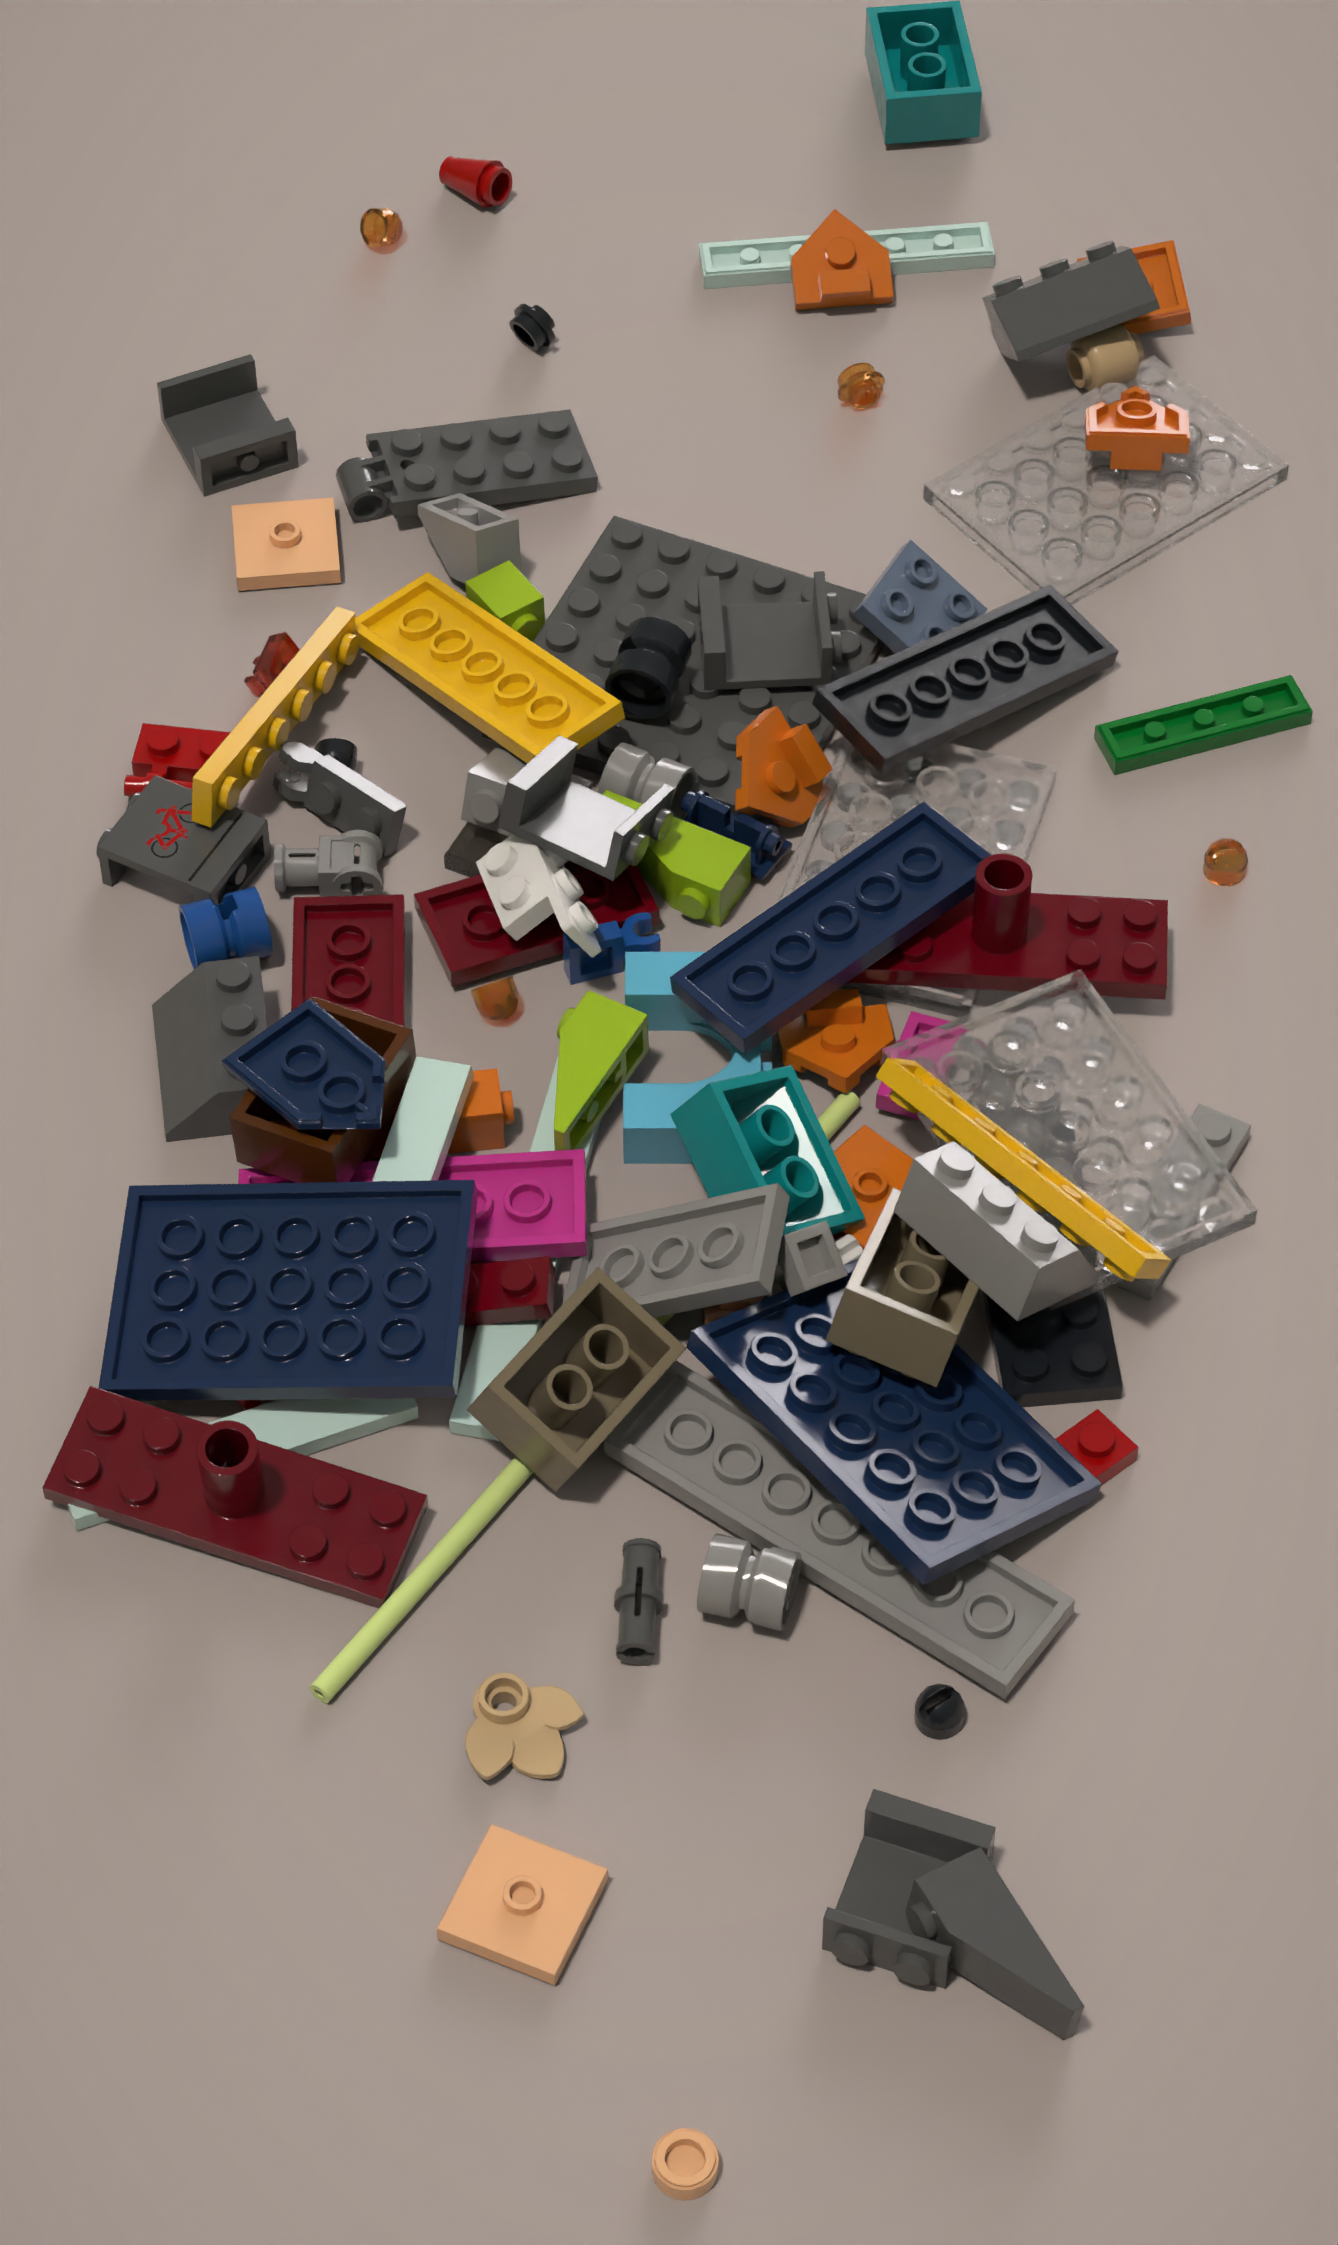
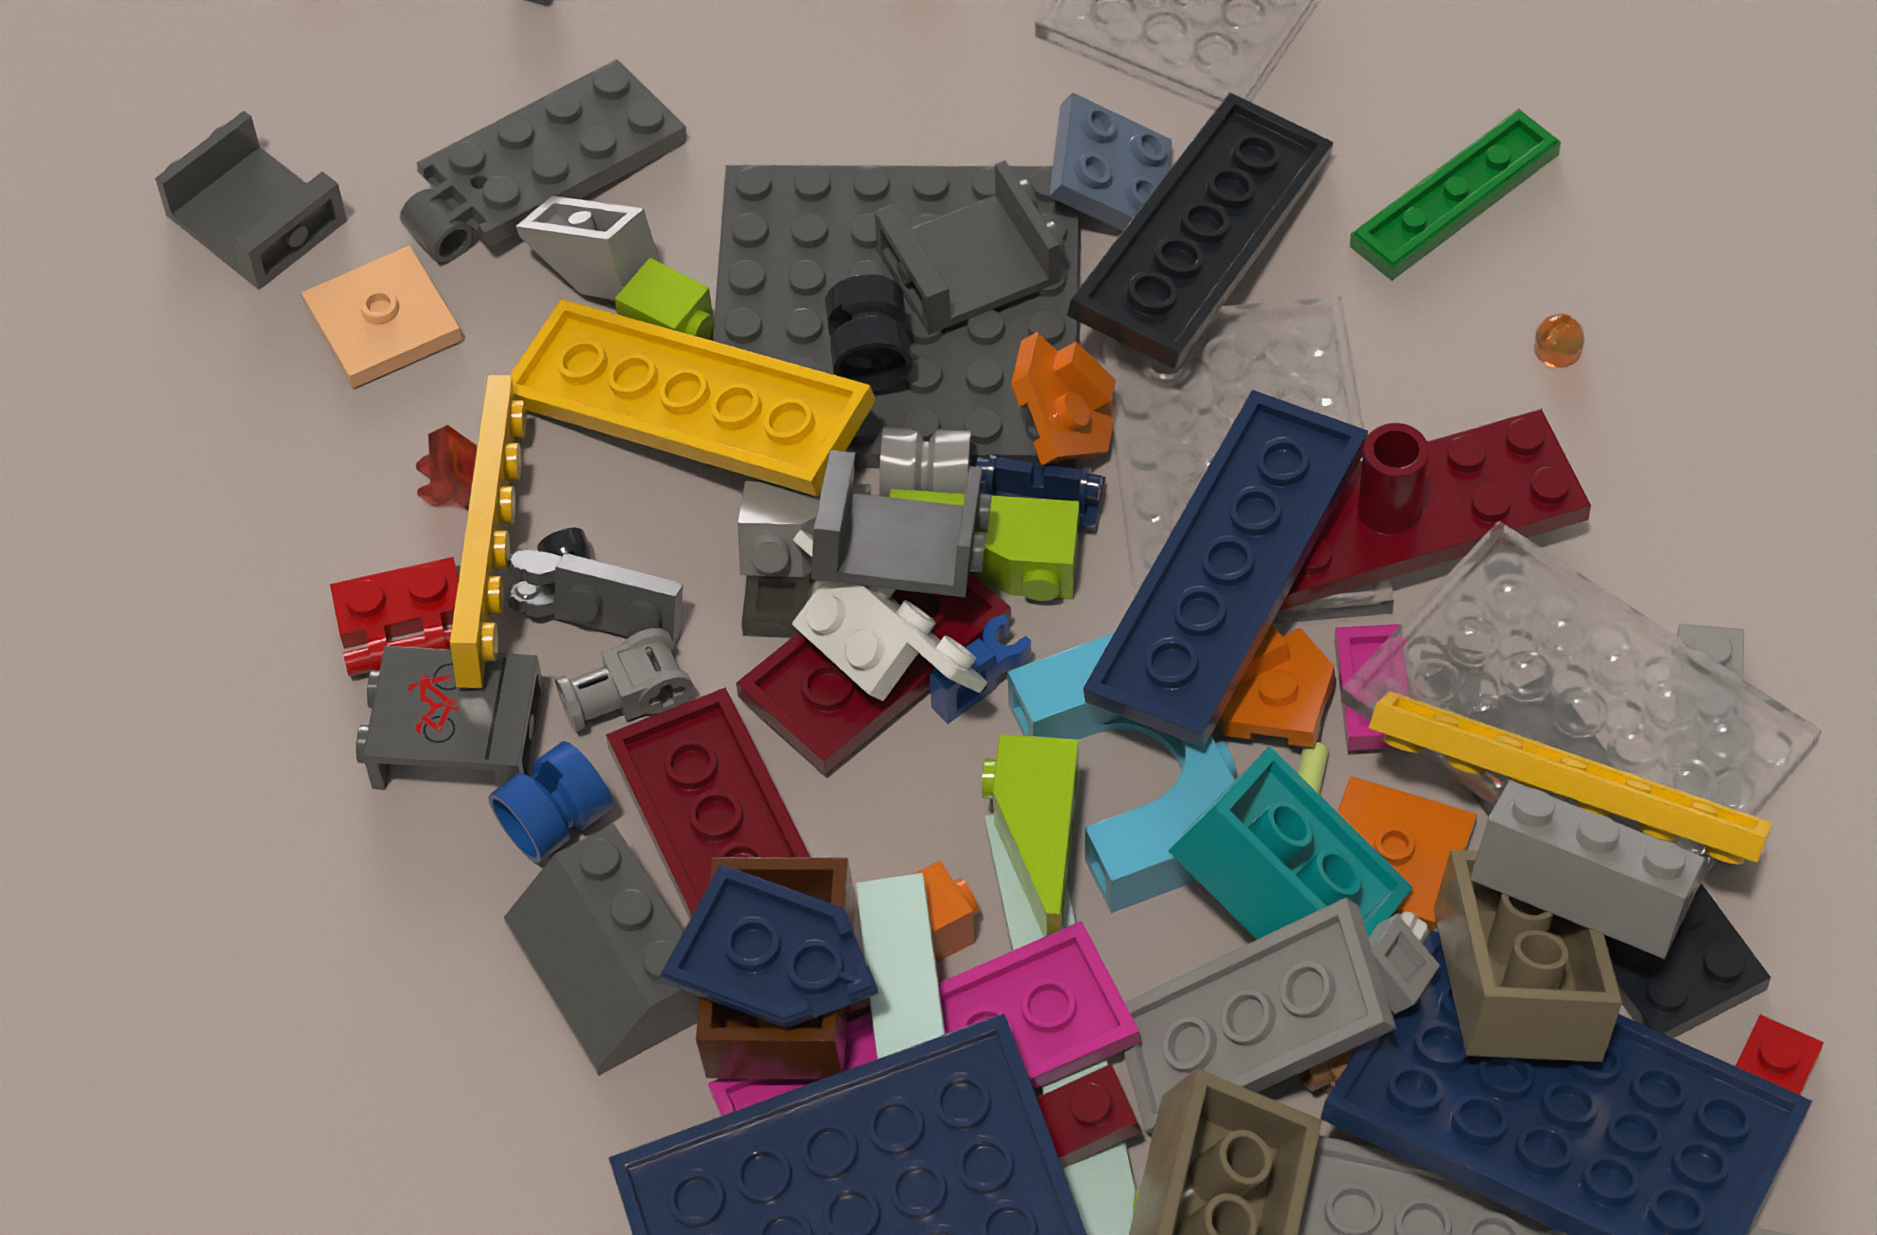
camera: 20 degrees left, 5 degrees up
(496, 999) = (884, 772): clear orange hinge -> none

